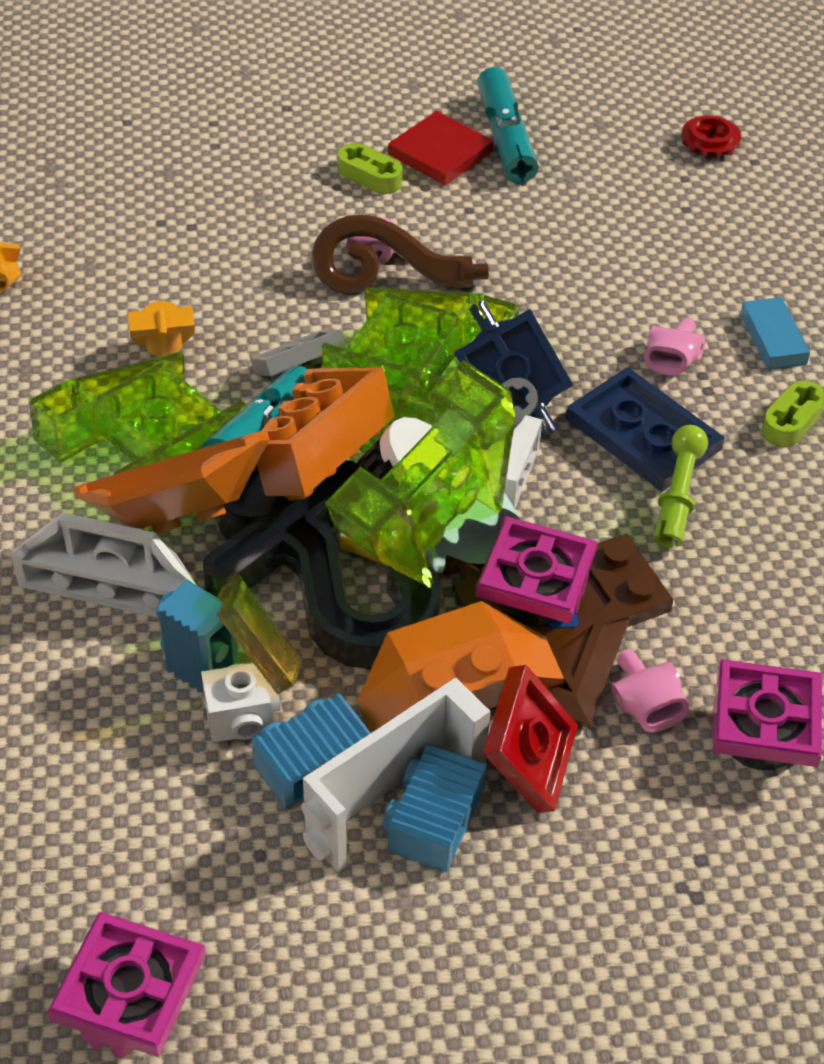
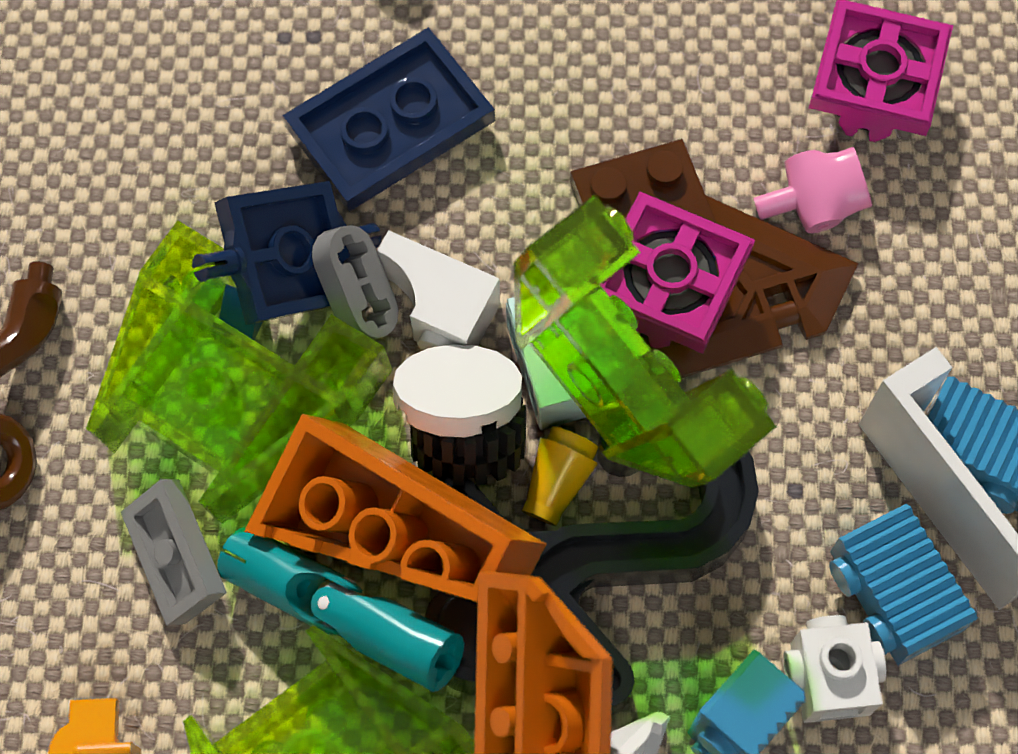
camera: 80 degrees left, 20 degrees up
(258, 634) = (760, 624): clear yellow slope -> none
(466, 643) = (818, 393): orange wedge -> none
(531, 739) = (894, 315): red plate -> none
(673, 350) = (243, 55): bright pink piece -> none
(689, 445) = (453, 65): lime pin -> none

